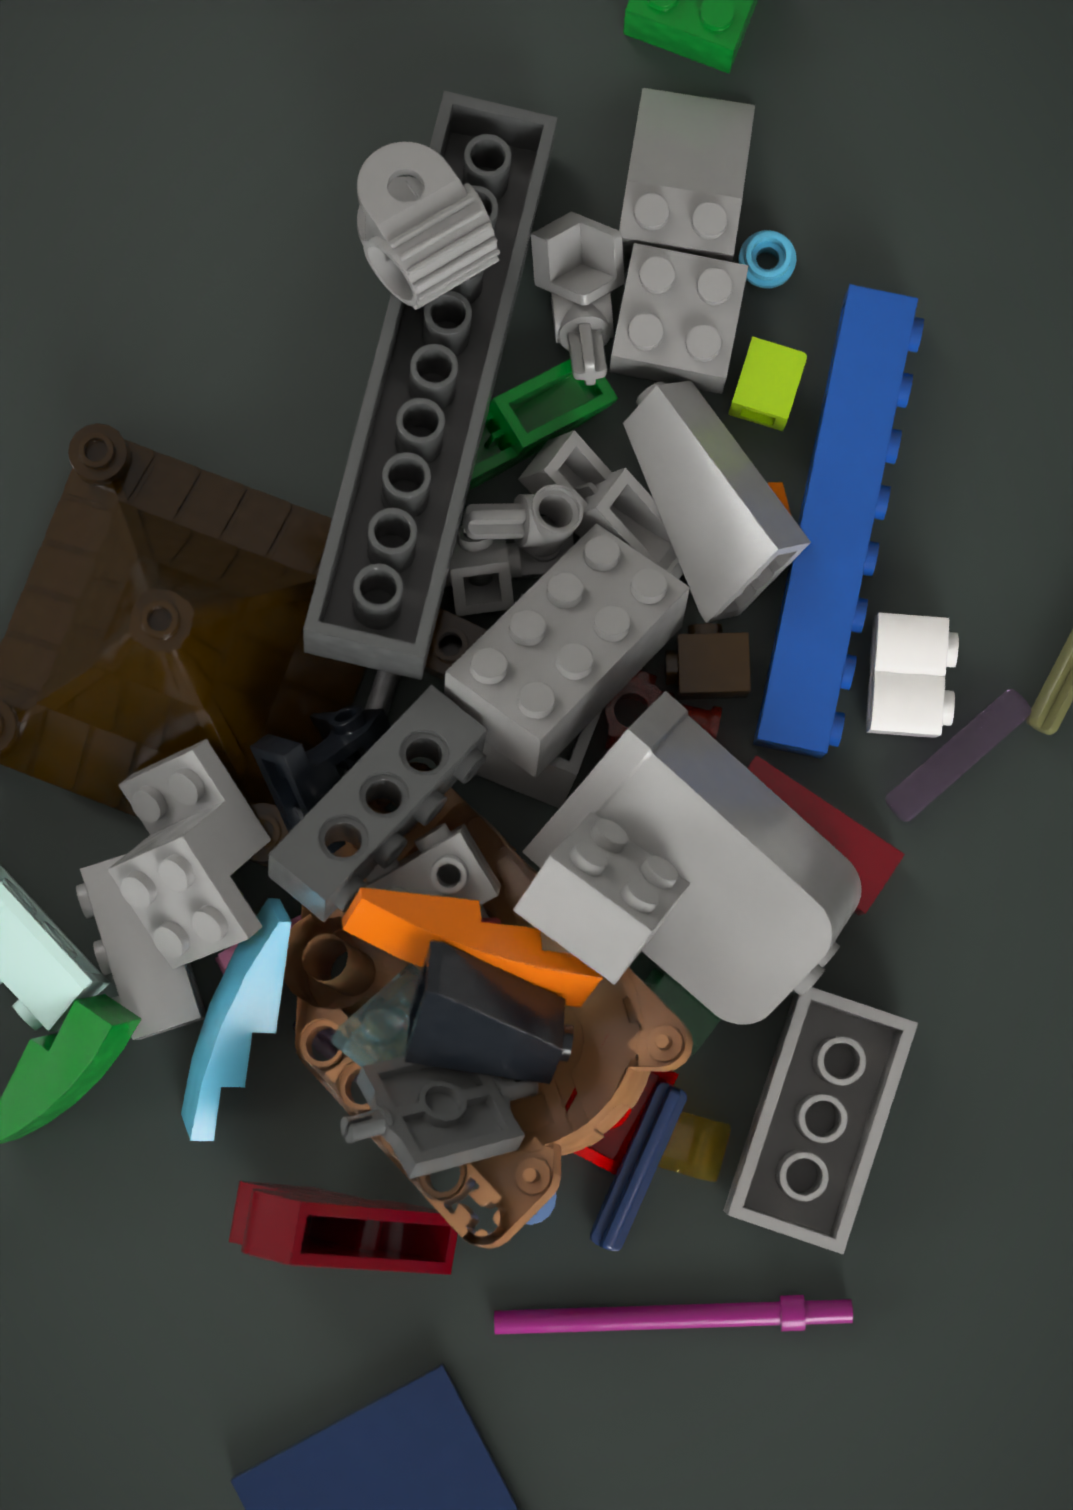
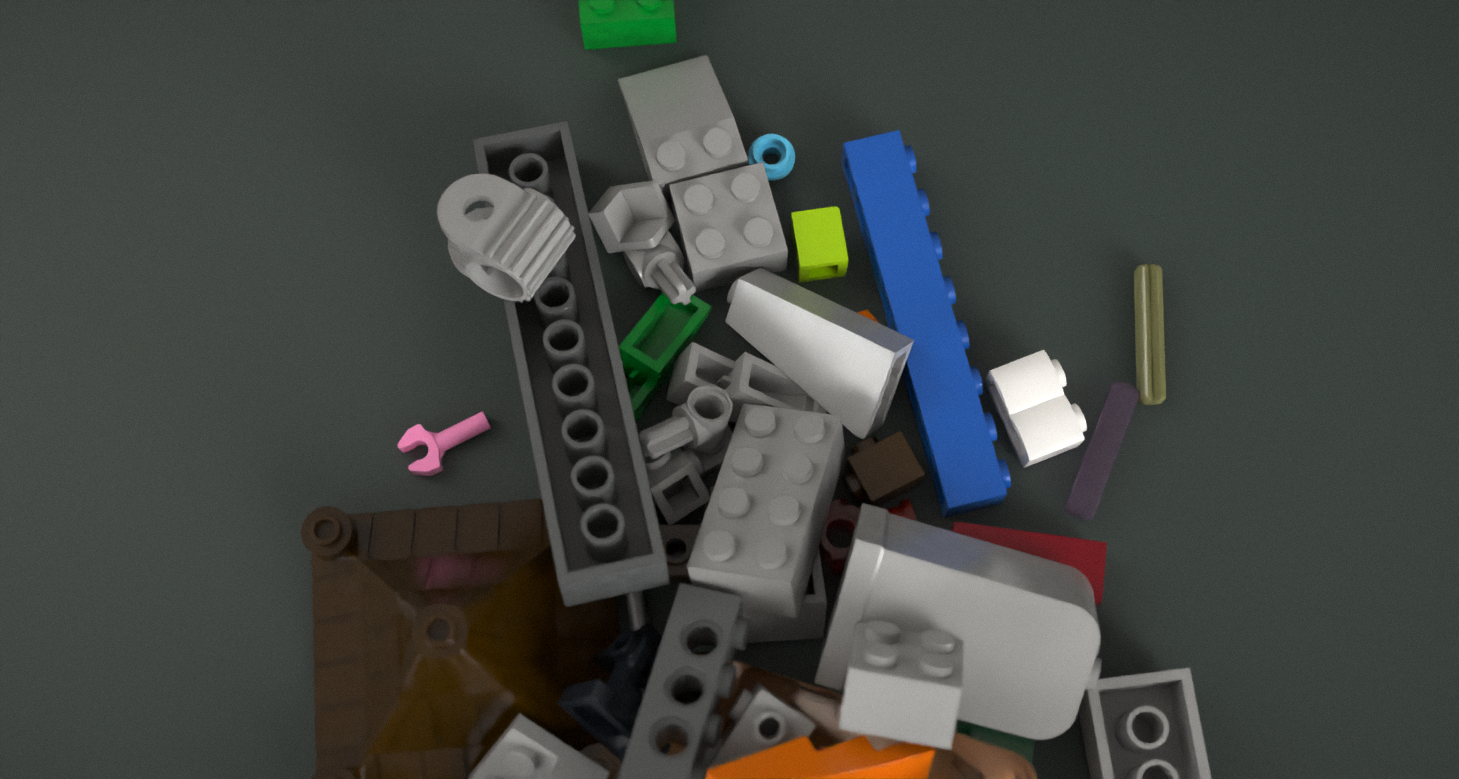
camera: 25 degrees left, 10 degrees down
(261, 409) = (440, 442): none -> bright pink bar

